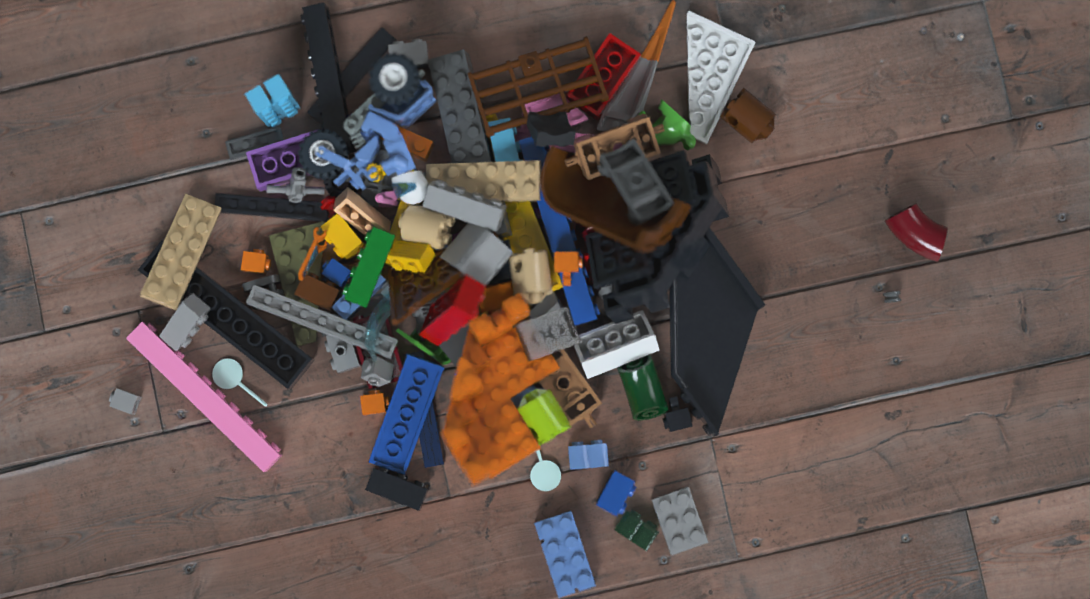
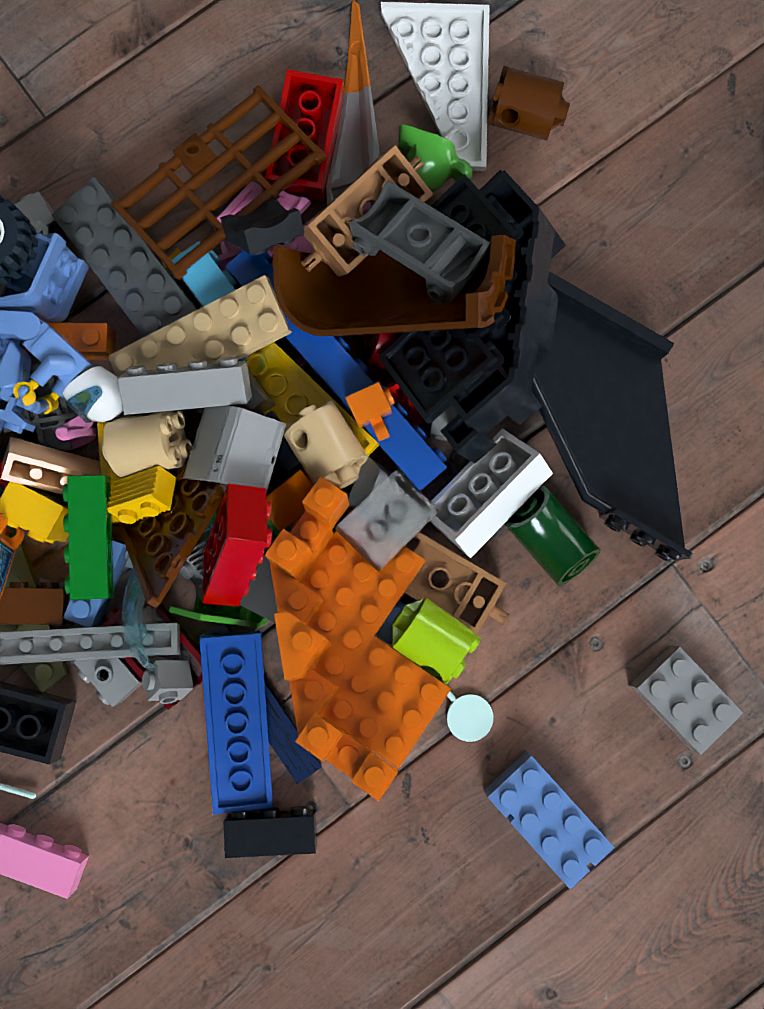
camera: 30 degrees left, 0 degrees up
(336, 272) = (48, 565): blue brick -> none
(374, 403) = (185, 725): orange brick -> none
(588, 456) = (517, 664): medium blue brick -> none
(615, 493) = (582, 702): blue brick -> none
(637, 530) = (630, 738): clear green brick -> none
(678, 418) = (617, 556): black brick -> none

